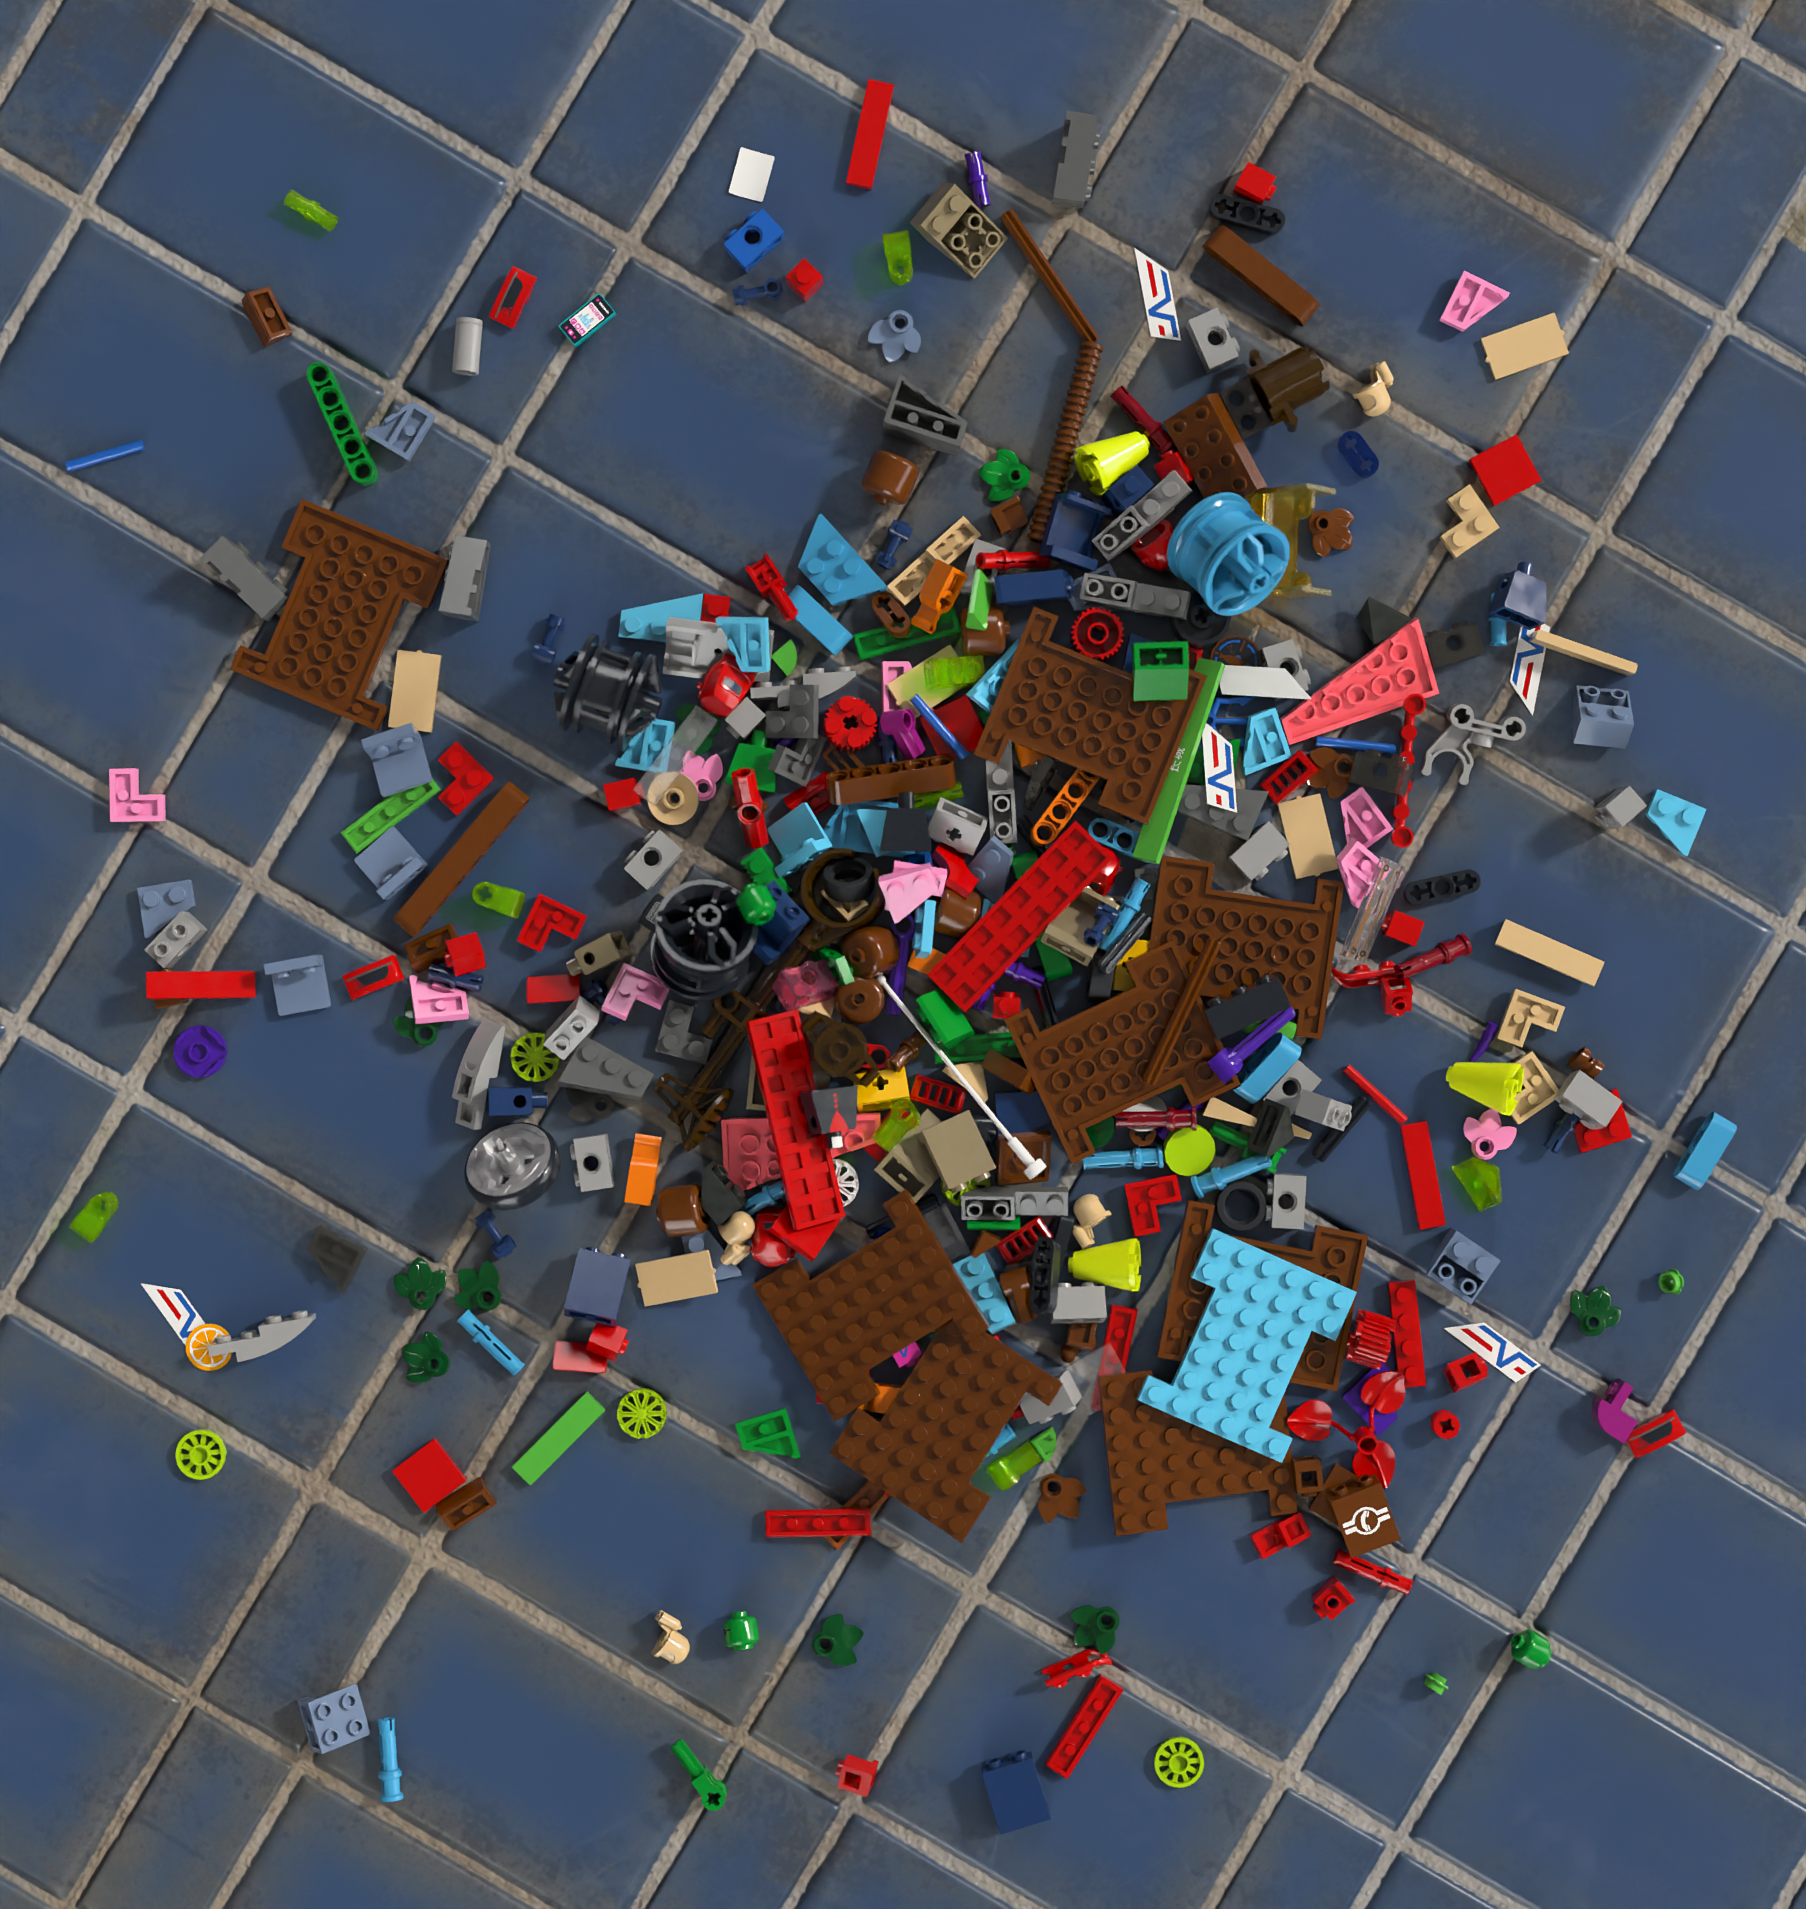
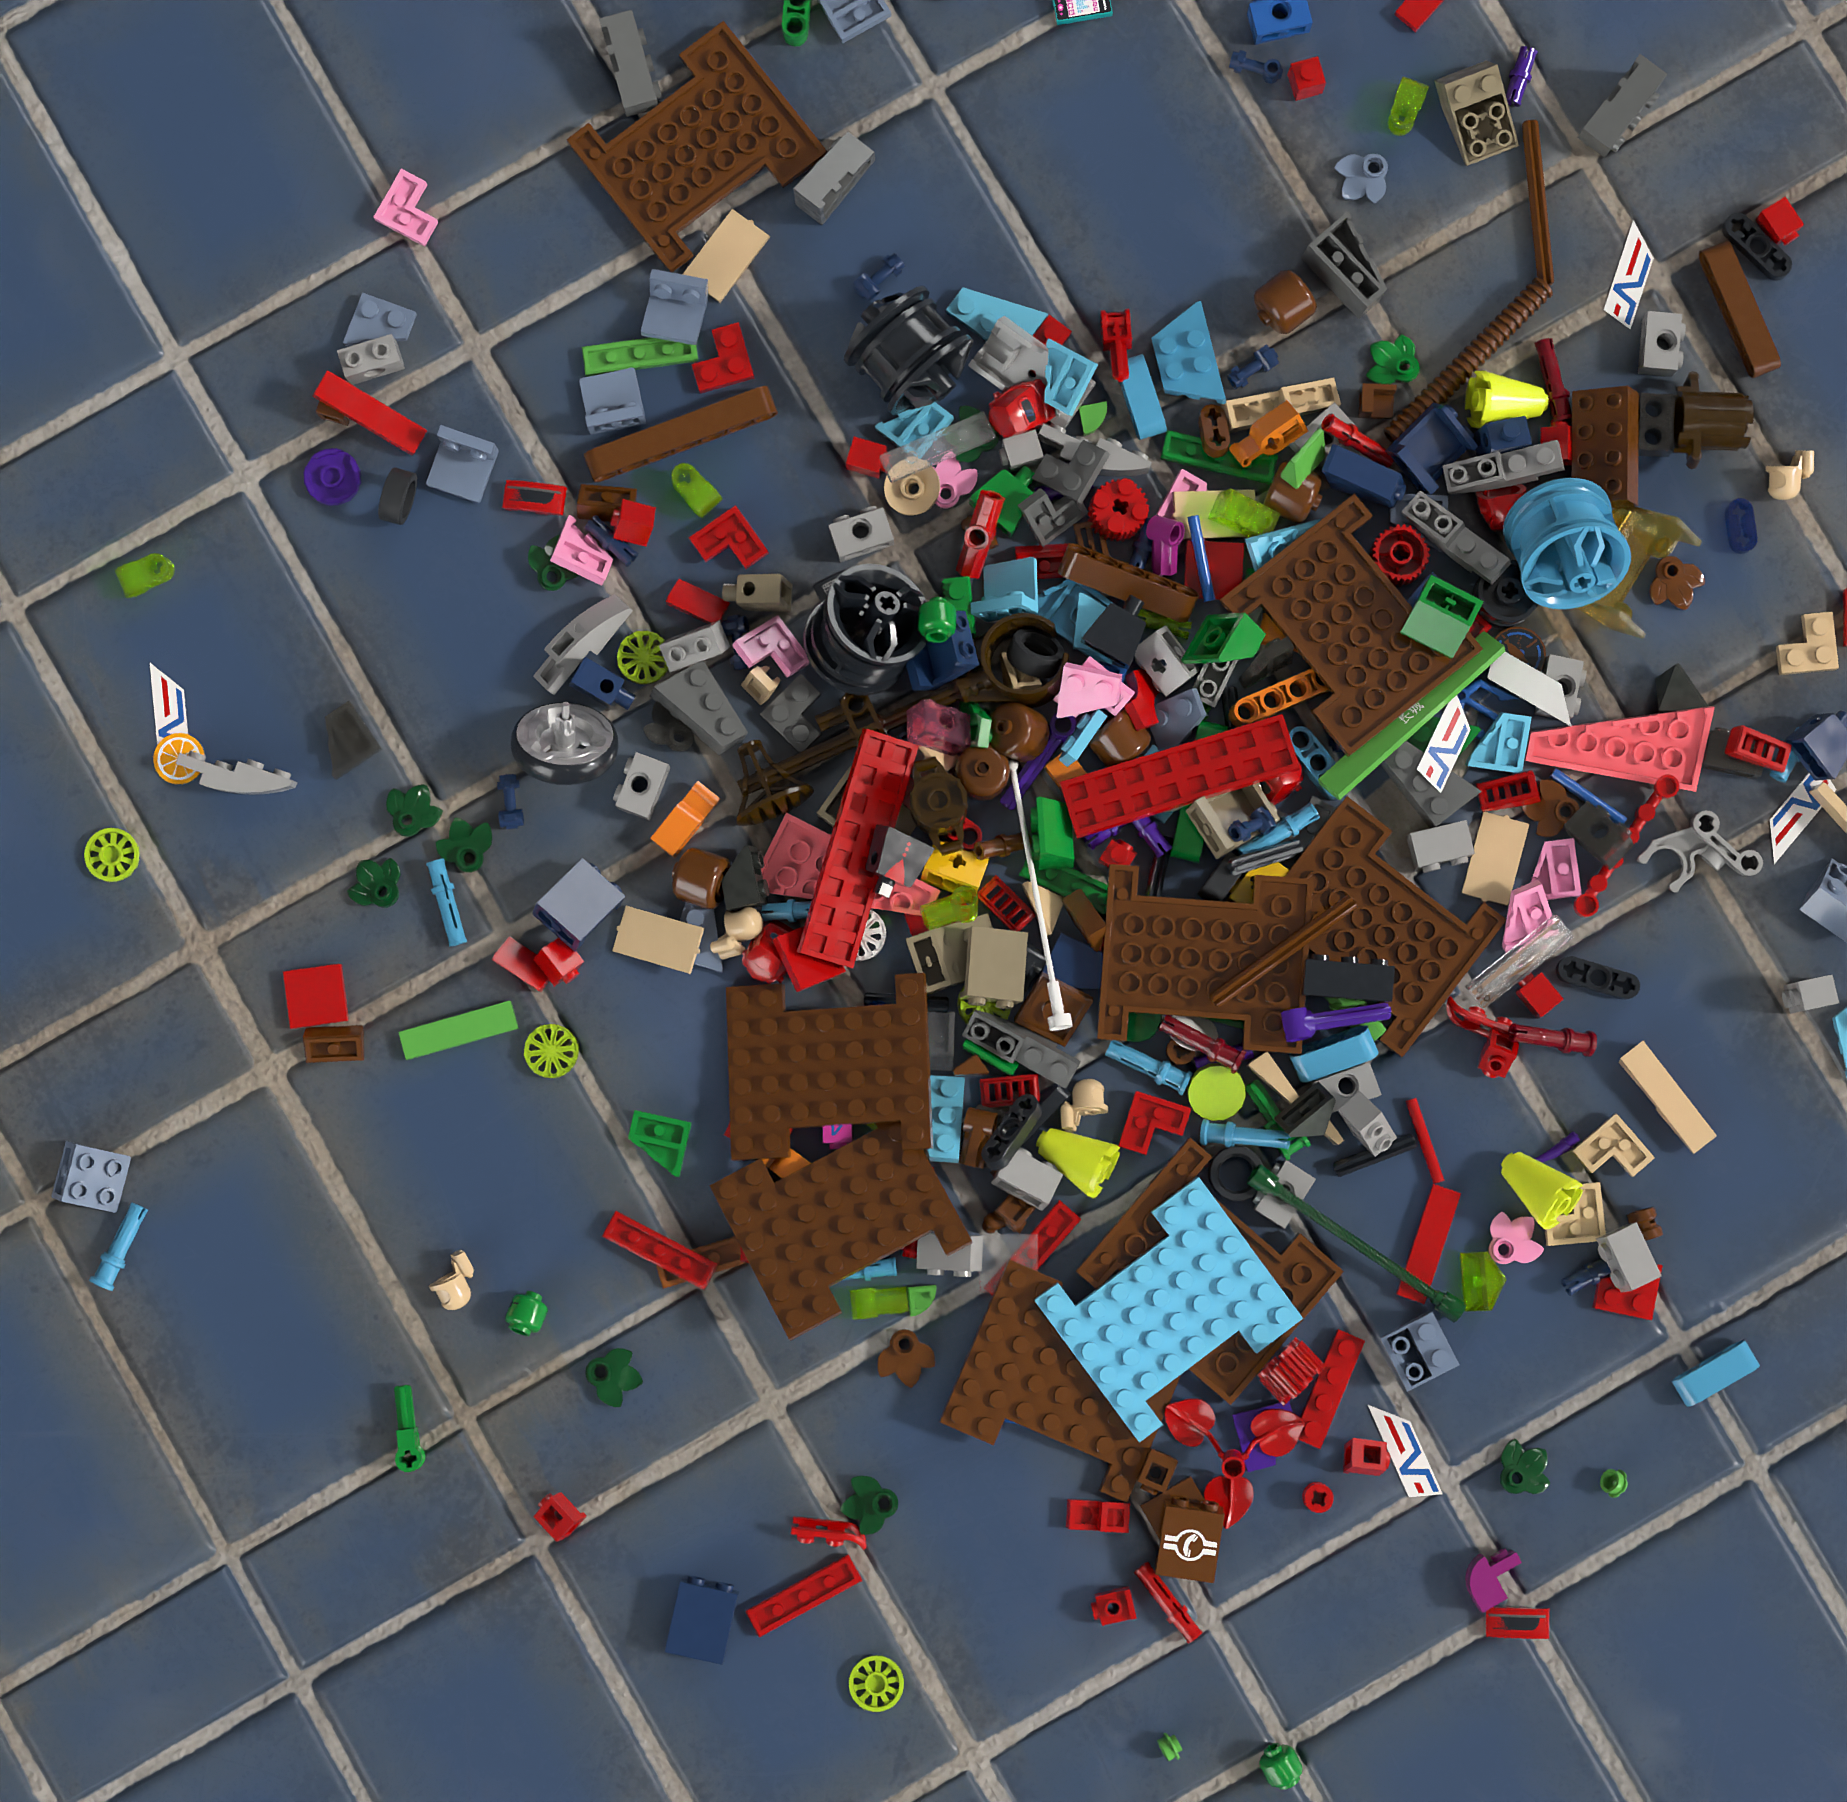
camera: 30 degrees right, 5 degrees down
(262, 1040) = (397, 496): none -> black tyre
(640, 1027) = (759, 684): none -> tan tile
(995, 787) = (1224, 639): none -> green slope
(1454, 634) = (1740, 743): none -> red slope
(1462, 1215) = (1444, 1303): none -> dark green hose

